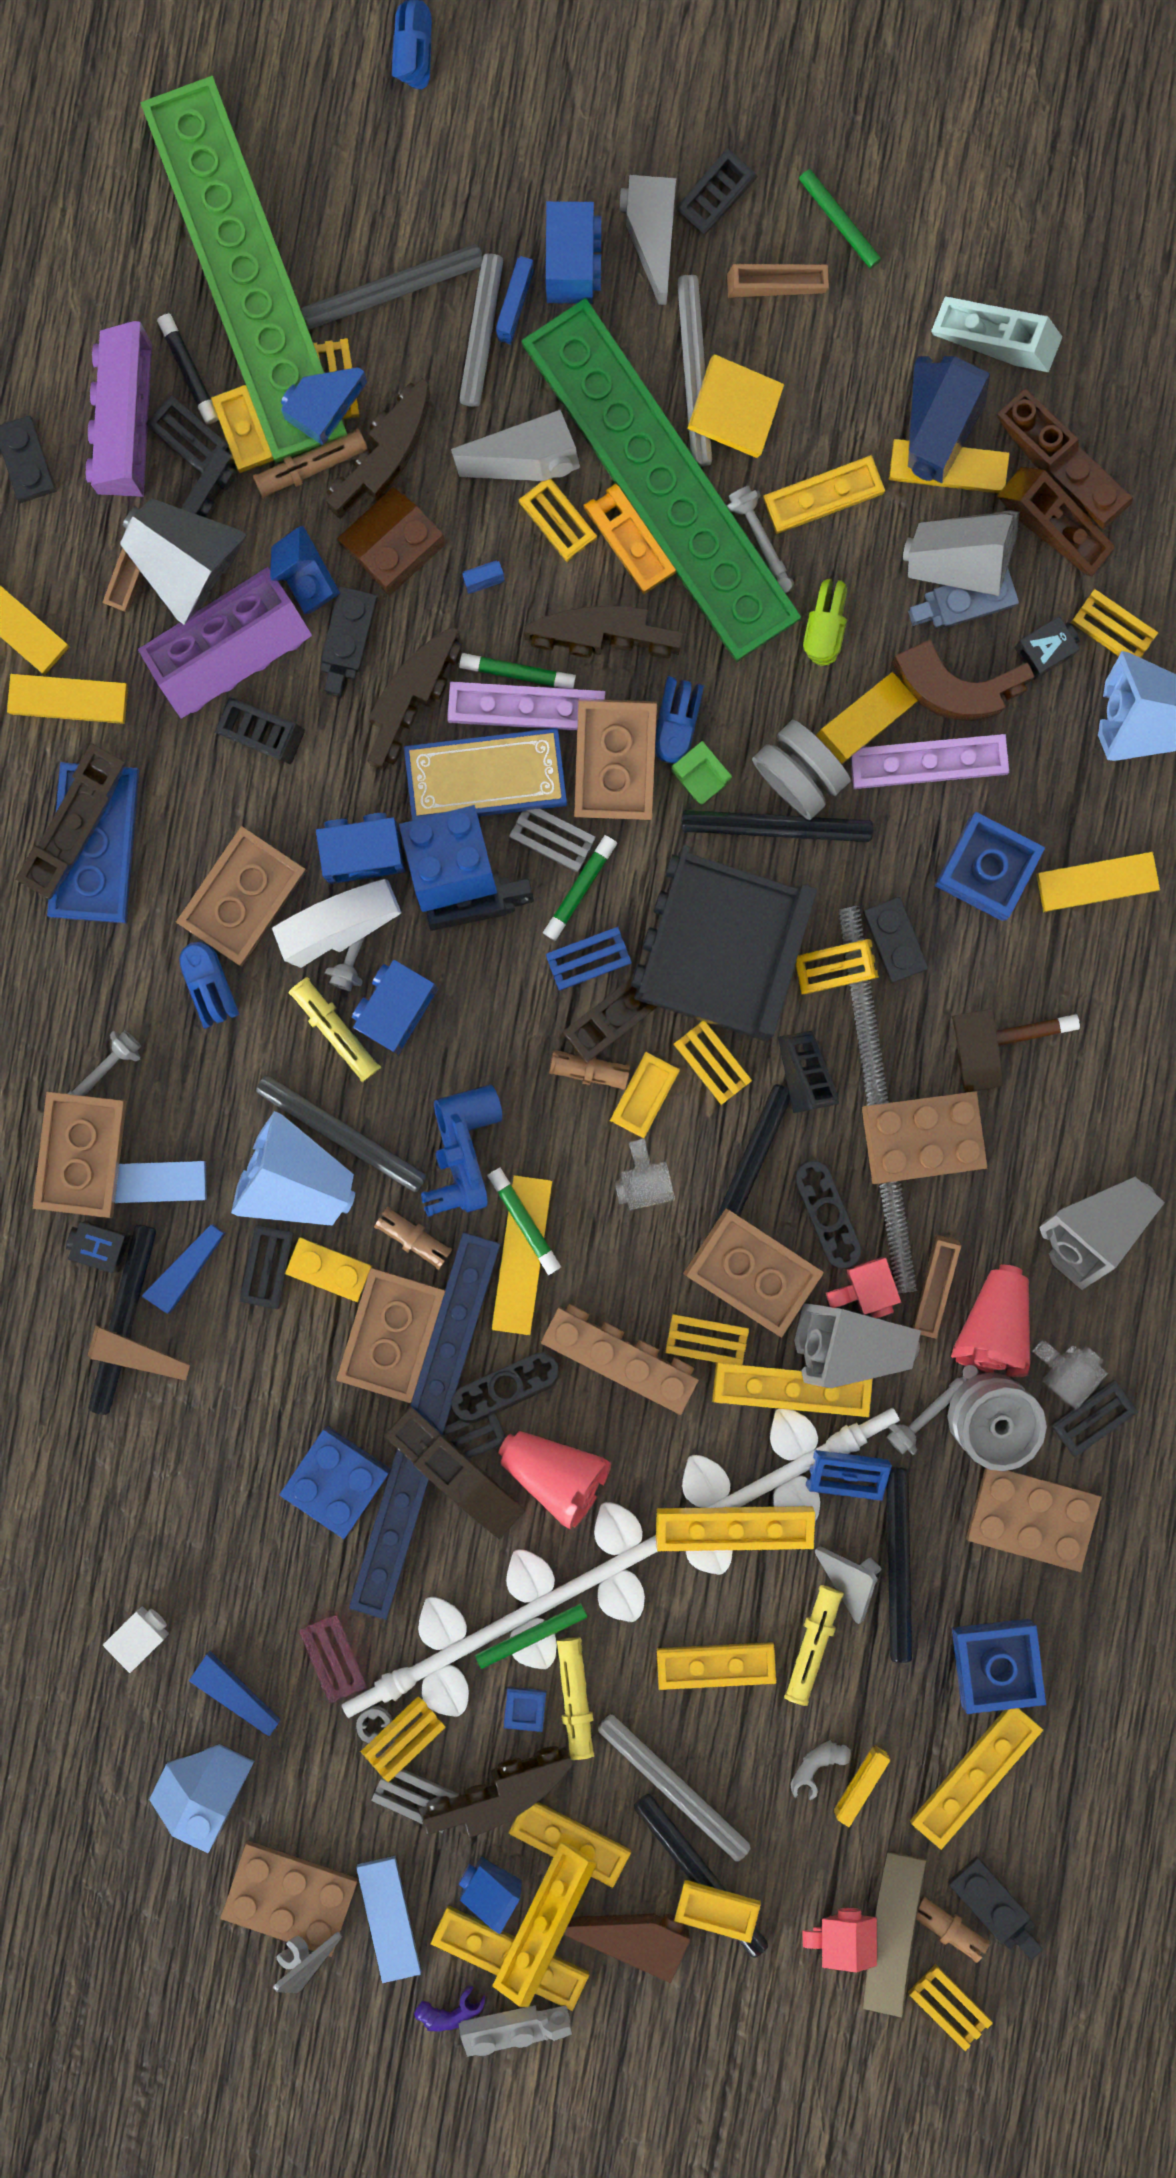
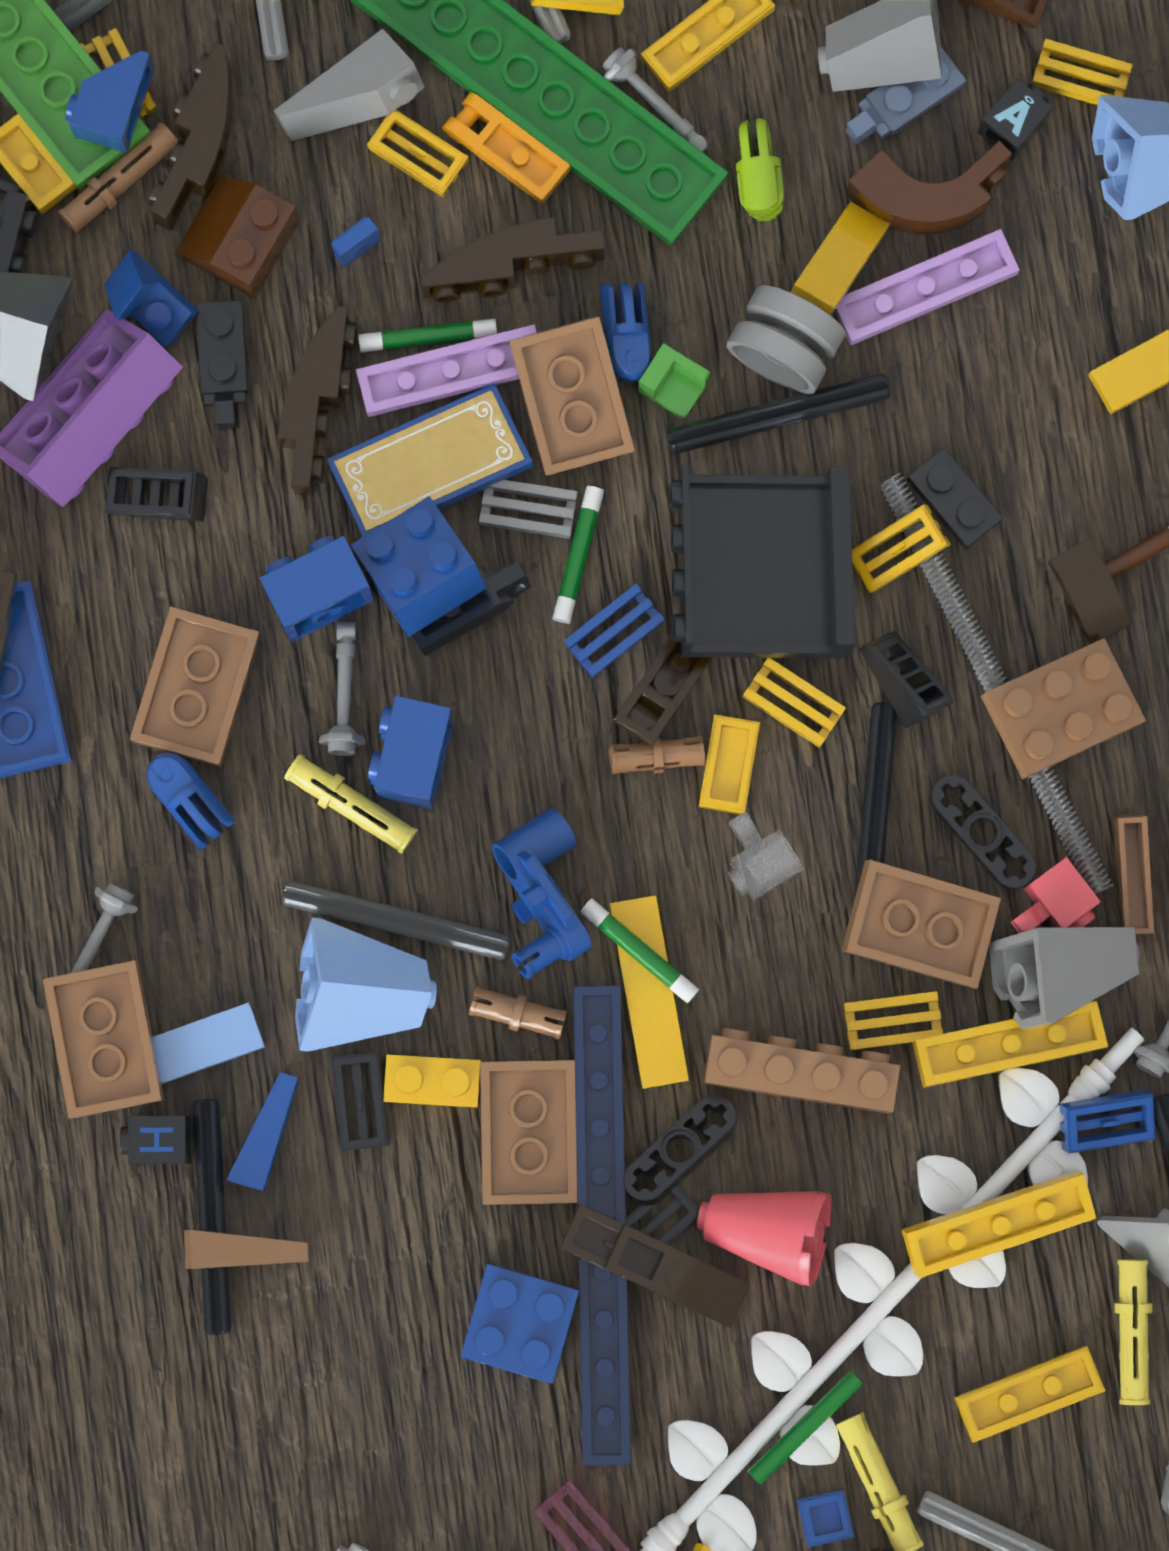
camera: 20 degrees left, 5 degrees down
(336, 922) = (314, 680): white slope -> none
(989, 866) = (1033, 380): blue brick -> none

